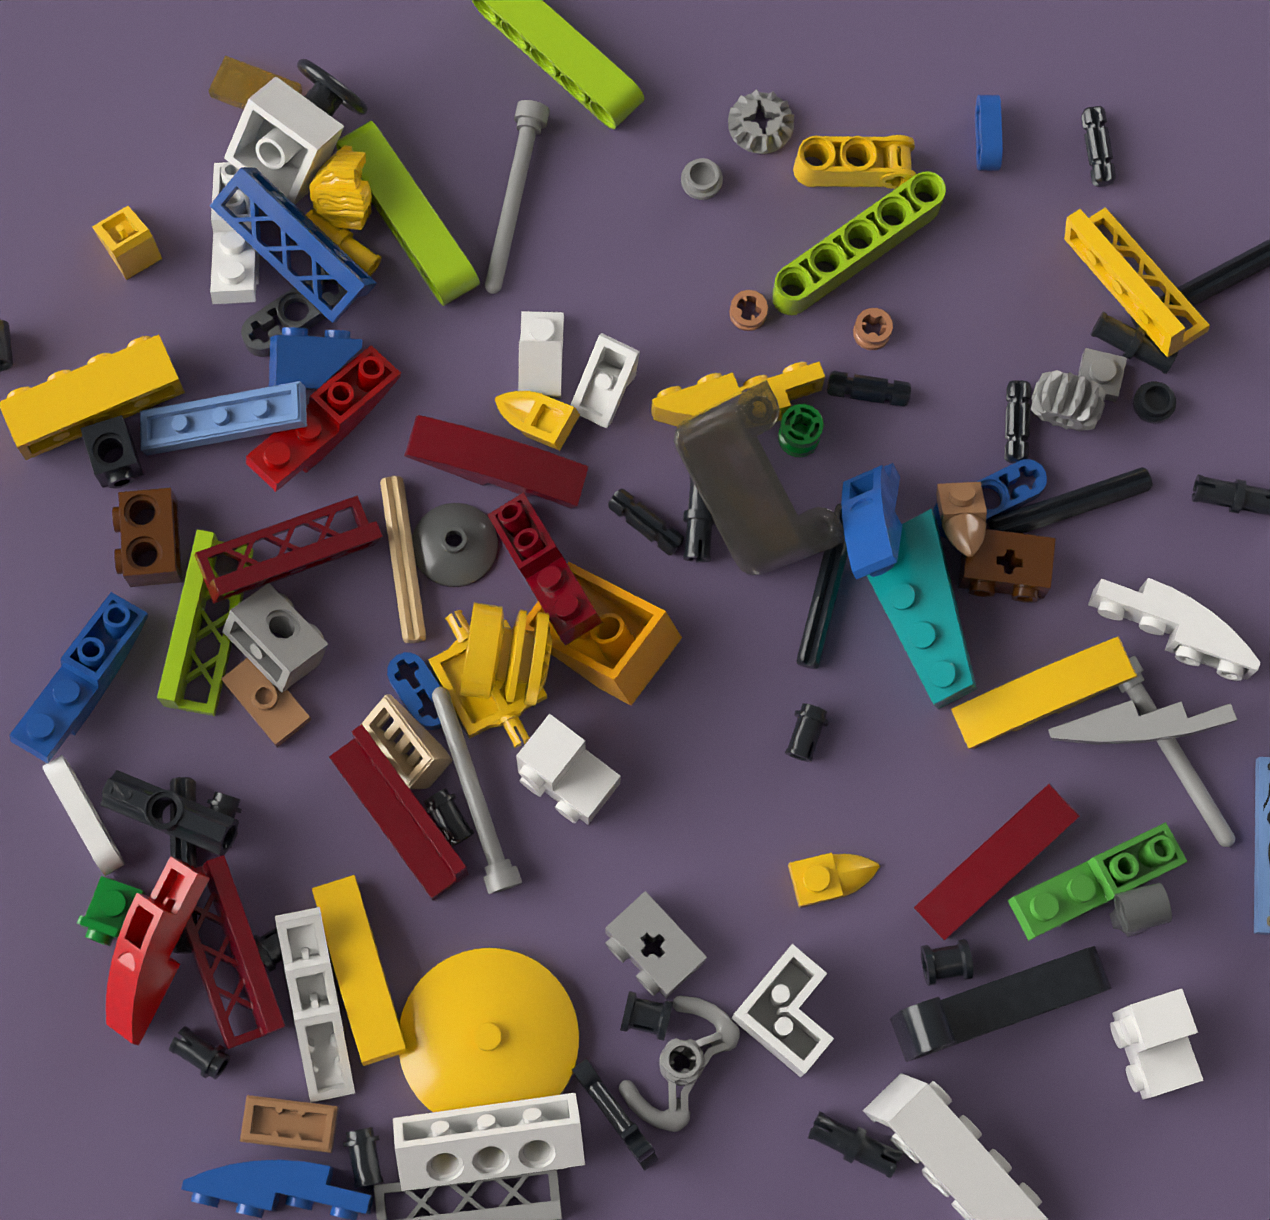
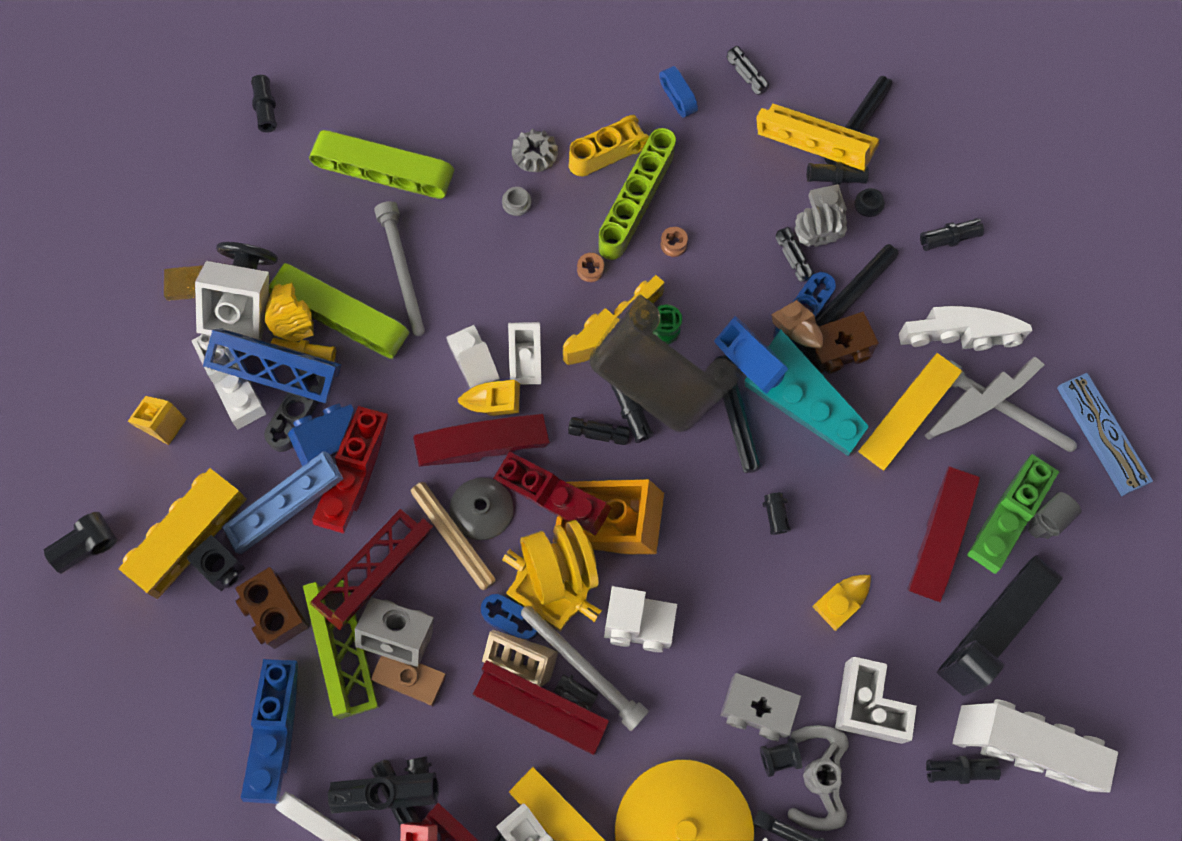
camera: 25 degrees left, 5 degrees down
(869, 388) = (692, 278): black axle -> none
(947, 962) = (951, 615): black bush -> none
(1157, 1043) = (1111, 596): white brick -> none

